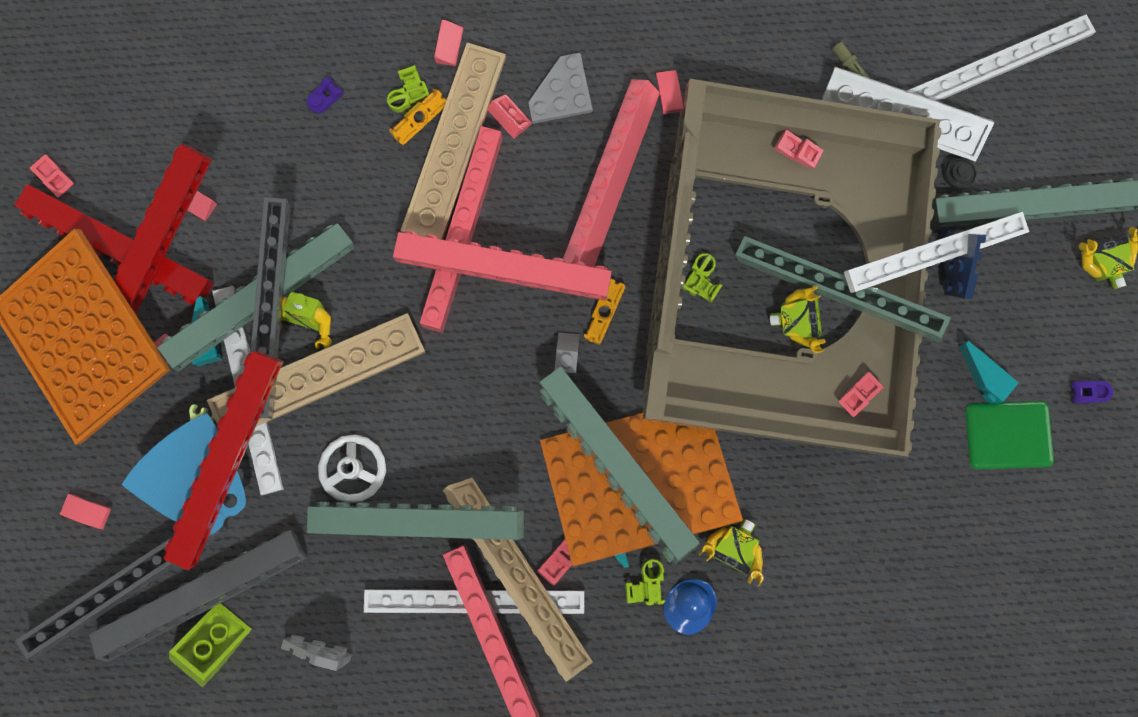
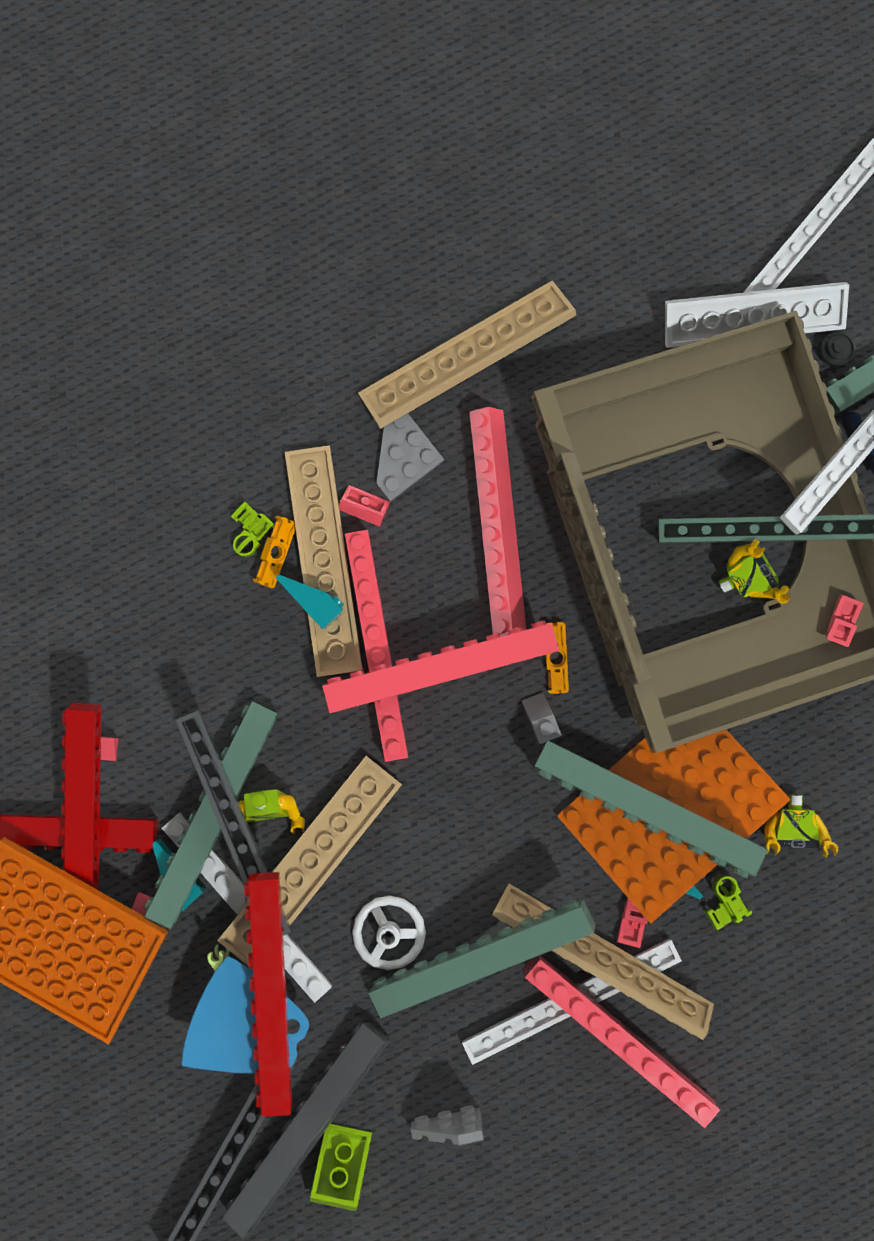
camera: 25 degrees left, 5 degrees up
(85, 511) = (152, 1103): coral slope -> none
(318, 101) = (166, 585): dark purple plate -> none
(429, 168) = (315, 602): none -> teal slope
(448, 43) = (265, 460): coral slope -> none
(652, 35) = (467, 354): none -> tan plate
(670, 92) = (511, 403): coral slope -> none
(690, 606) = (777, 903): blue hat -> none
(701, 283) = (631, 584): lime piece -> none
(798, 150) = (670, 405): coral slope -> none
(848, 60) = (675, 286): olive pin -> none

